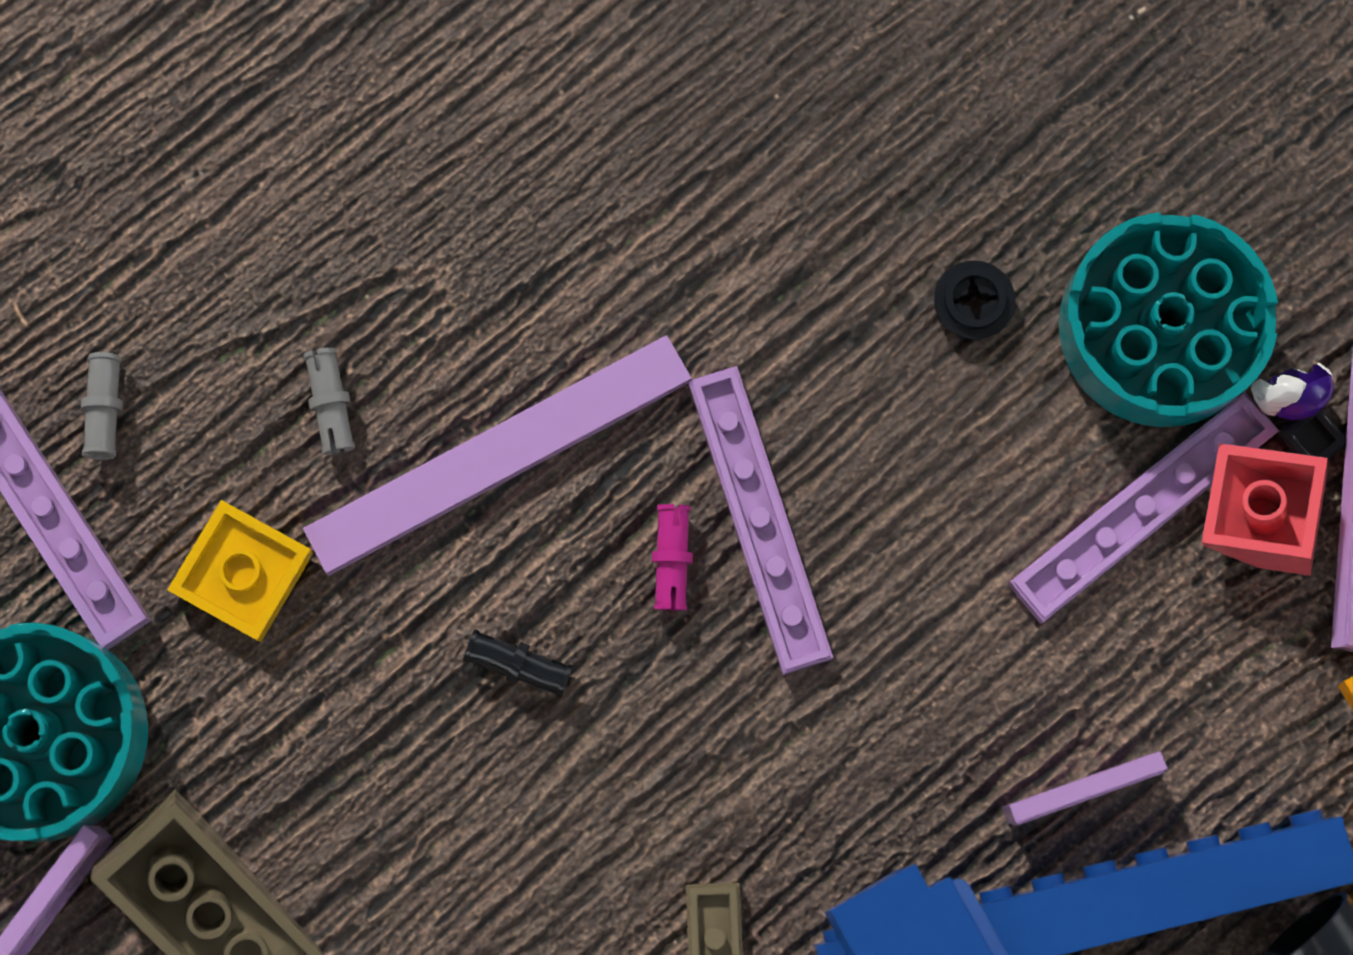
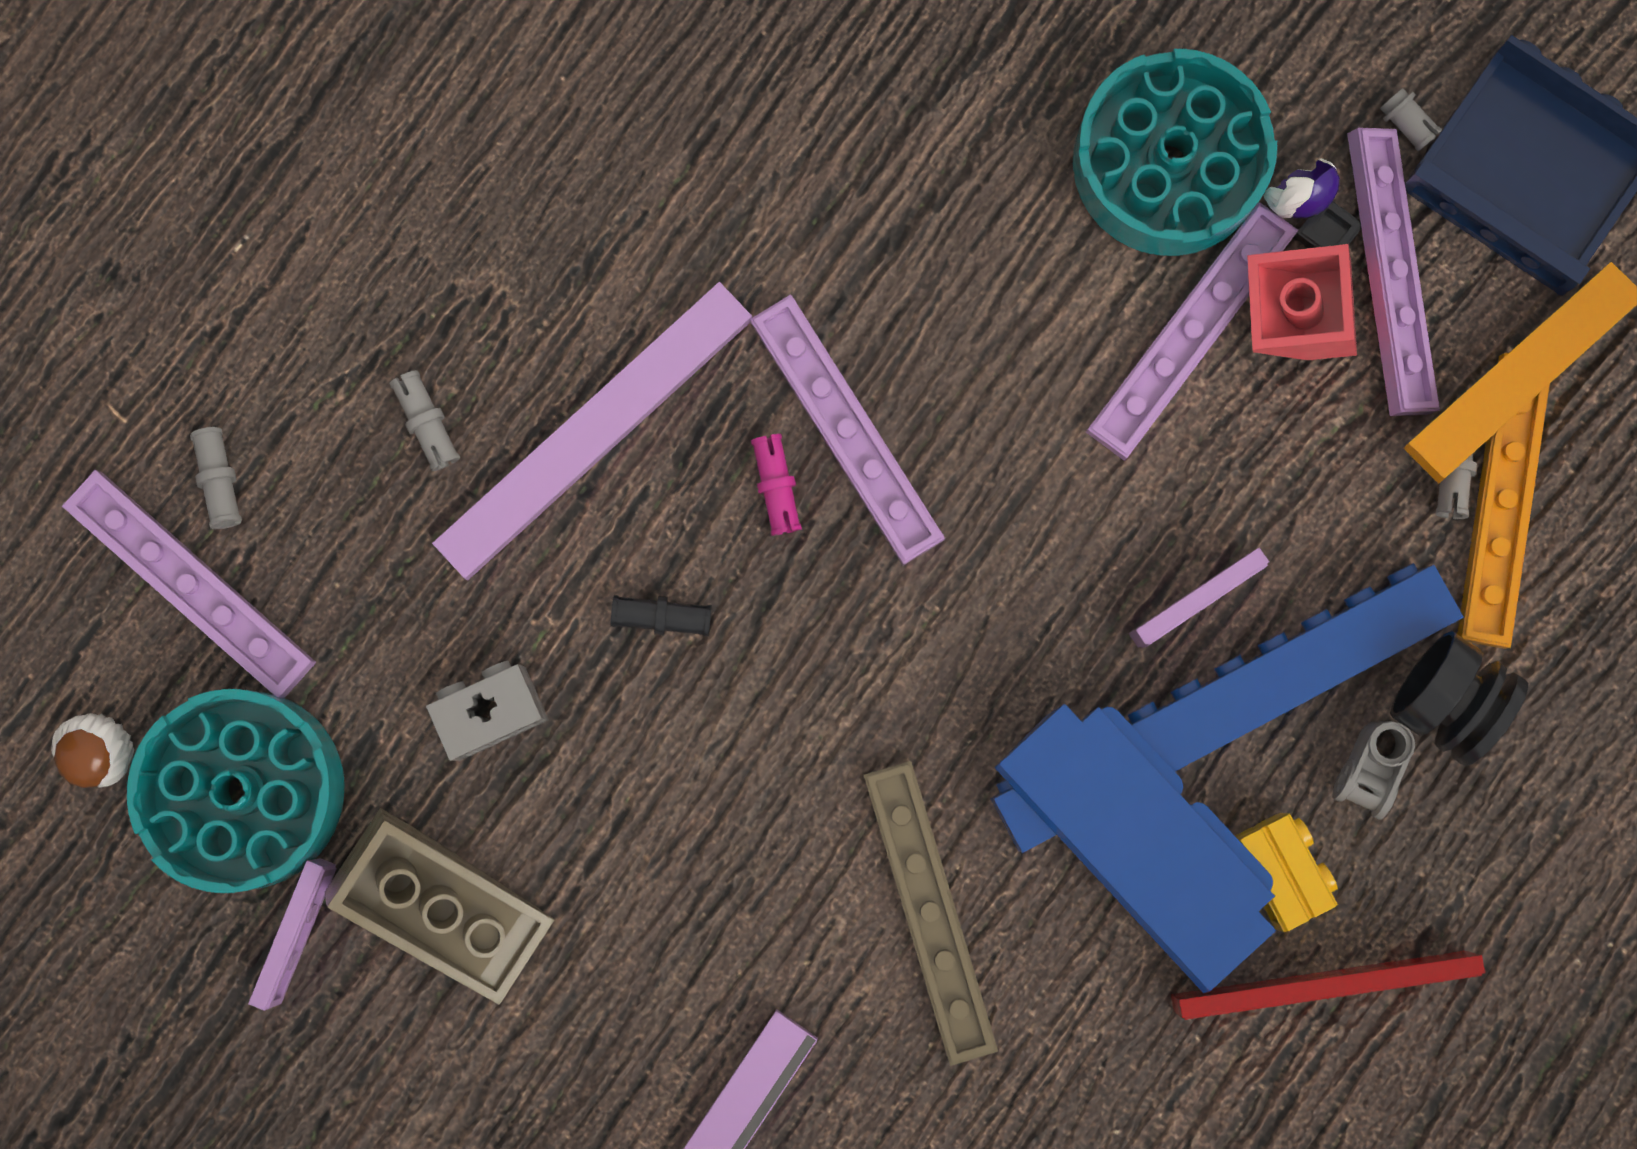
camera: 10 degrees left, 5 degrees up
(240, 571) = (386, 596): yellow plate -> none
(284, 733) = (465, 732): none -> light grey brick
(989, 284) = (1002, 160): black gear -> none

